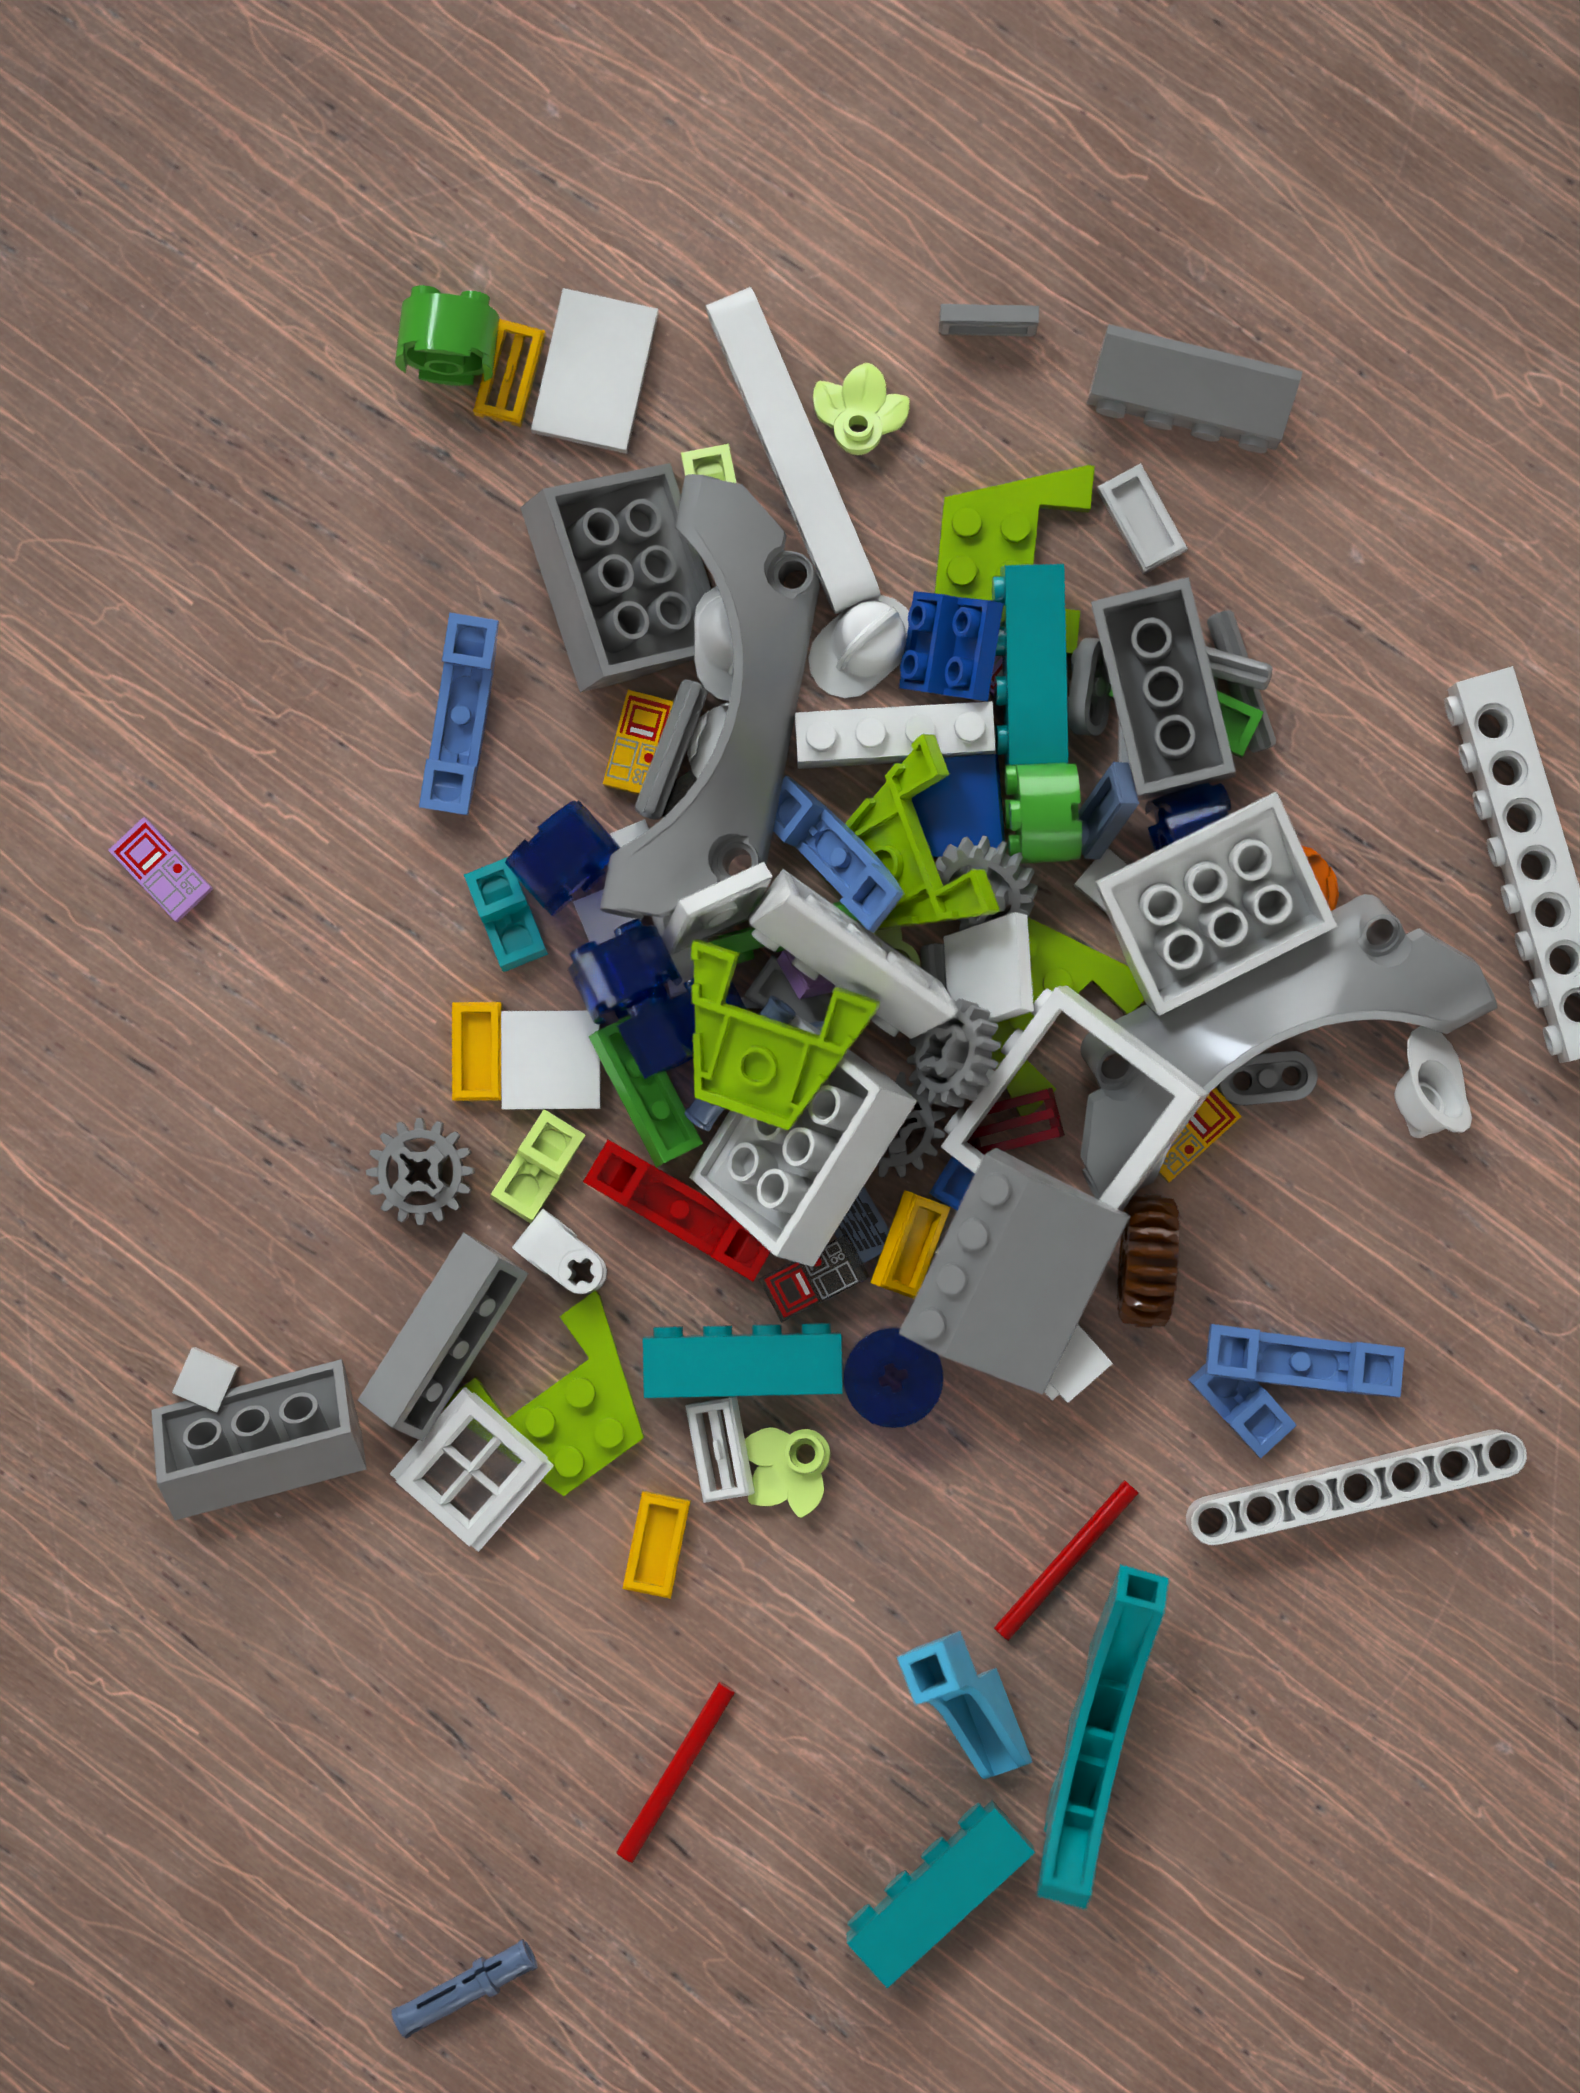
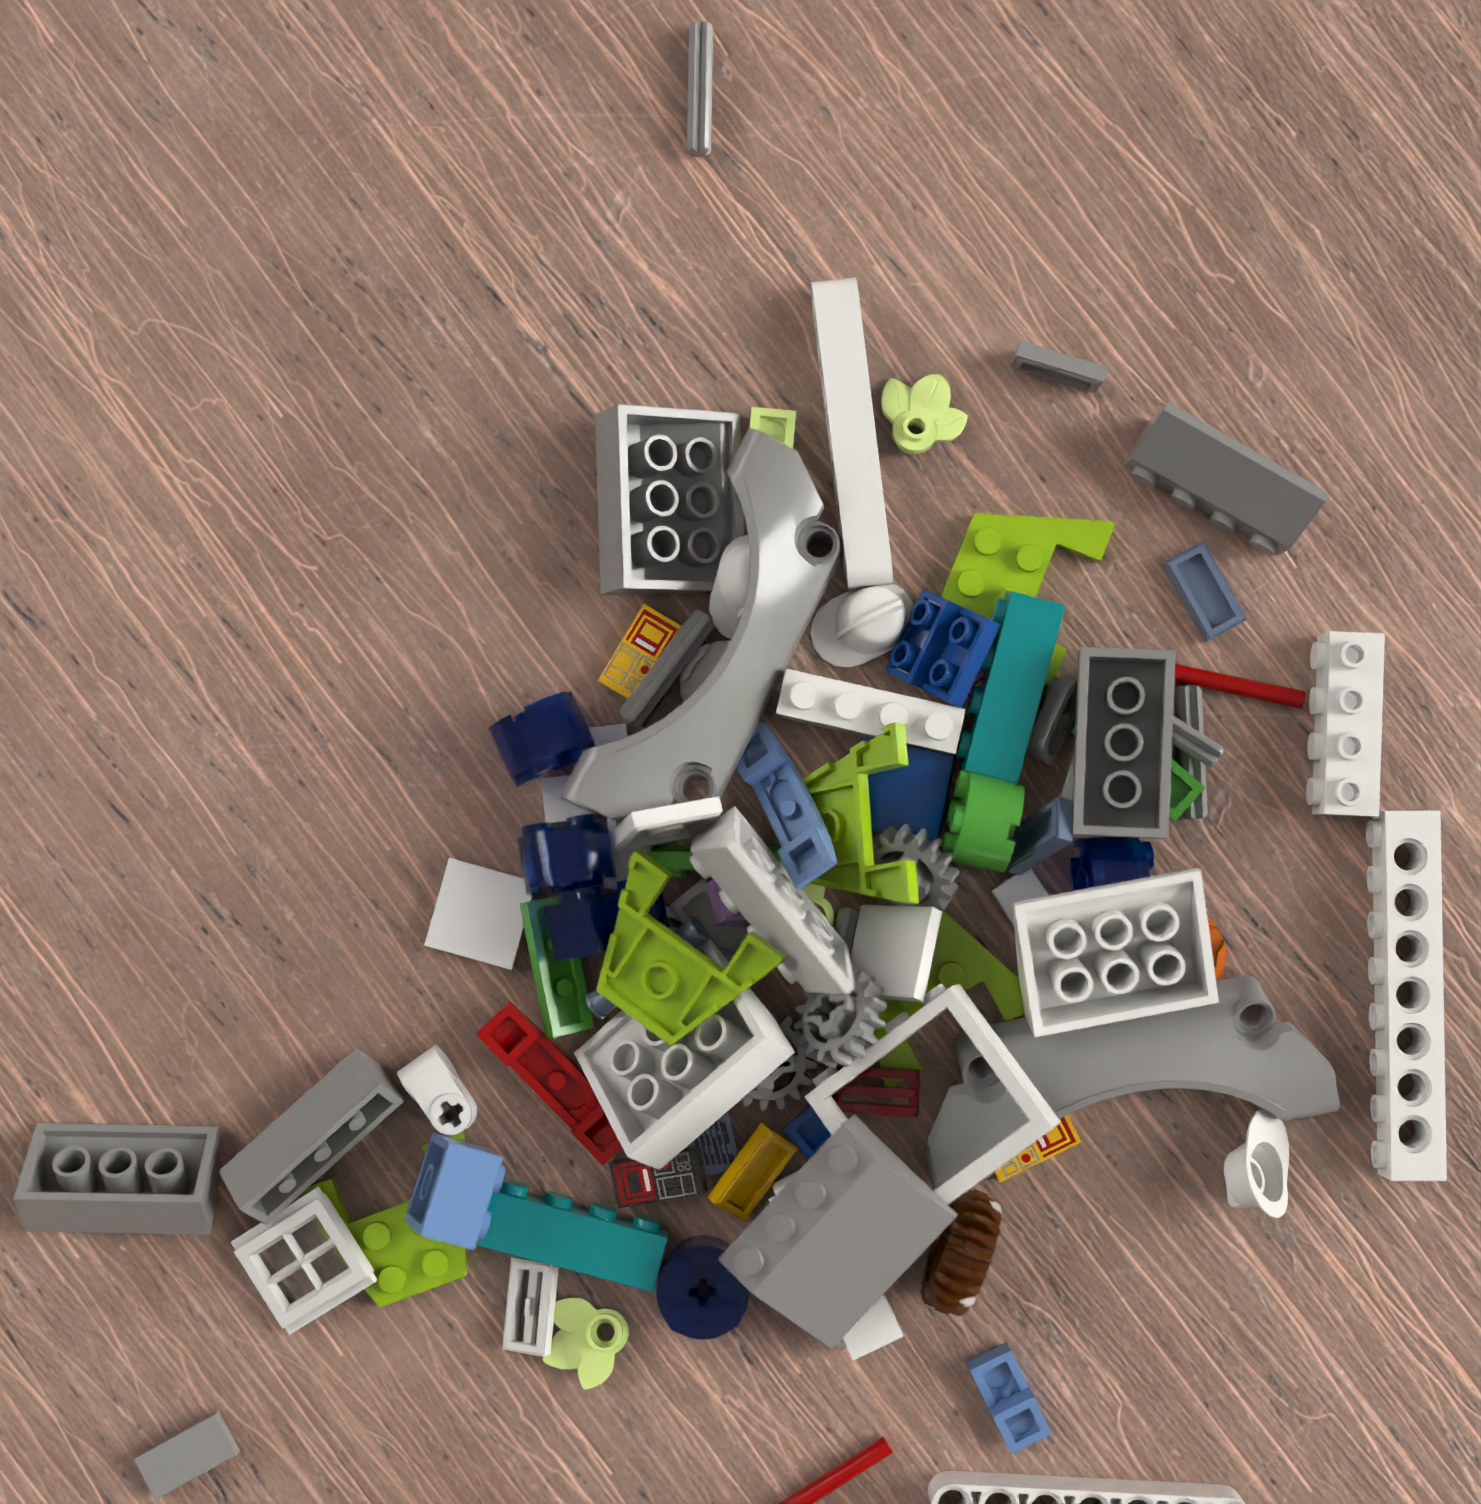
camera: 10 degrees right, 0 degrees up
(160, 869) = (184, 644): lavender tile -> none
(205, 1379) = (92, 1109): white tile -> none
(404, 1187) = (346, 998): light grey gear -> none
(408, 1706) = (186, 1455): none -> light grey tile
(447, 336) = (573, 243): bright green brick -> none
(460, 714) = (488, 583): medium blue slope -> none
(476, 1051) = (417, 886): yellow tile -> none
(499, 412) = (601, 325): yellow tile -> none
(505, 915) = (477, 773): teal slope -> none
(531, 135) = (700, 88): none -> light grey axle
(537, 1166) = (441, 1005): yellowish green slope -> none
(594, 370) = (696, 312): white tile -> none
(608, 1343) = (455, 1191): none -> medium blue brick
(656, 1544) = (450, 1373): yellow tile -> none
(1142, 518) = (1143, 582): white tile -> none
(1207, 510) = (1204, 591): none -> sand blue tile
(1267, 1081) = (1112, 1121): light grey plate -> none
(1269, 598) = (1239, 686): none -> red bar
(1304, 1361) = (1076, 1379): medium blue slope -> none
(1393, 605) = (1346, 724): none -> white brick

